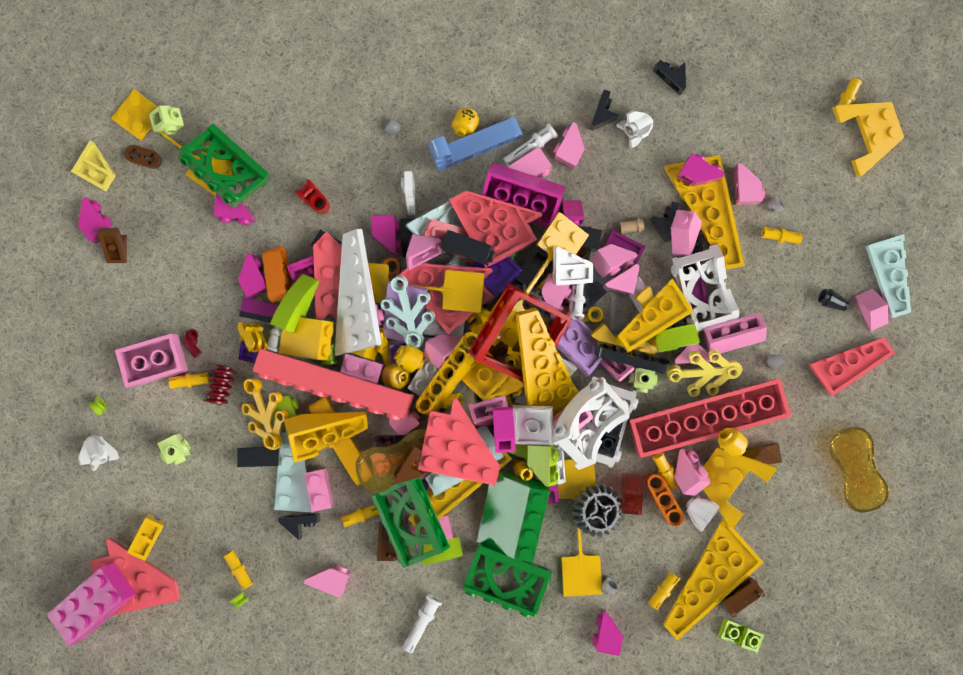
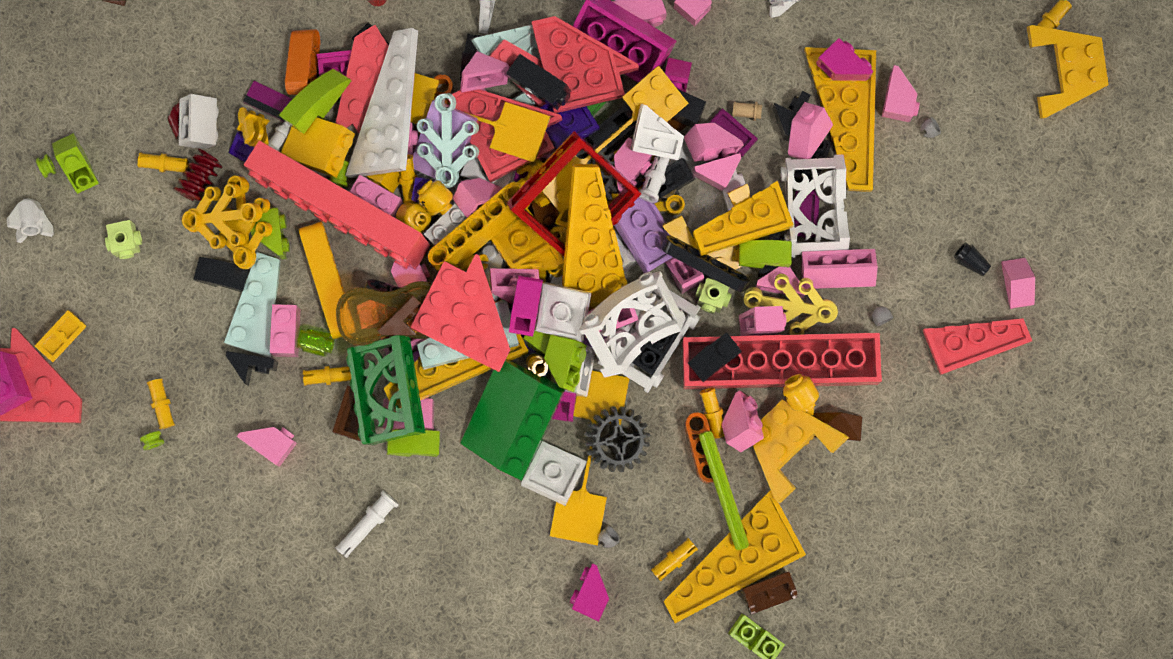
camera: 15 degrees right, 5 degrees down
(120, 398) = (74, 163): none -> lime slope
(151, 360) = (125, 127): bright pink brick -> none
(208, 342) = (198, 121): none -> white brick
(227, 419) = (196, 219): none -> yellow plant
(251, 277) = (271, 60): dark pink slope -> none
(314, 432) = (302, 258): yellow wedge -> none
(345, 492) = (315, 342): none -> clear neon green brick
(385, 232) = (445, 44): dark pink slope -> none
(533, 573) = (473, 465): green fence -> none
(556, 548) = (553, 473): none -> white plate
(632, 493) = (664, 429): clear red slope -> none
(658, 430) = (714, 357): none -> black slope
(686, 391) = (762, 321): none -> bright pink slope
(690, 531) = (723, 490): none -> lime axle
(701, 511) = (744, 474): white brick -> none
(781, 235) = (928, 165): yellow pin -> none
(863, 484) = (953, 489): clear yellow plate -> none
(890, 271) = (1051, 238): light aqua wing -> none

